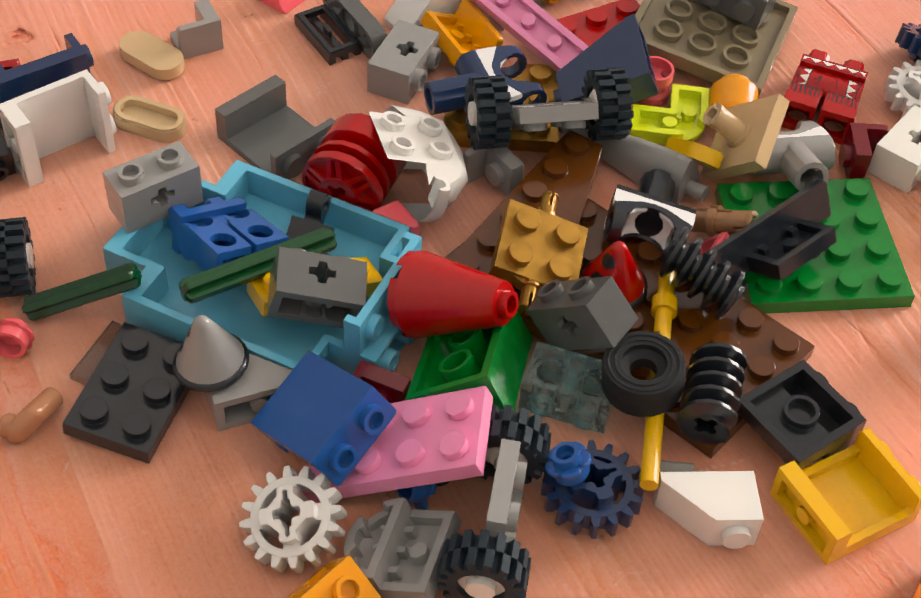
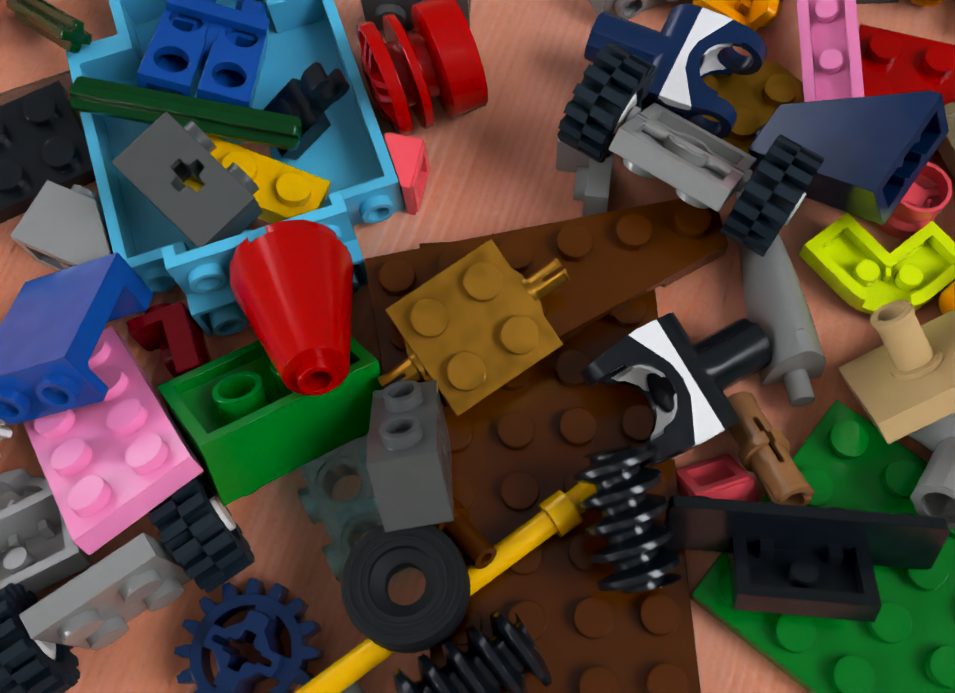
camera: 55 degrees right, 20 degrees up
(210, 357) = (45, 182): light grey hat -> none
(425, 146) = (498, 94): white animal -> none
(568, 463) = (224, 626): blue plate -> none
(619, 264) = (542, 430): red hat -> none
(702, 154) = (840, 339): yellow tile -> none

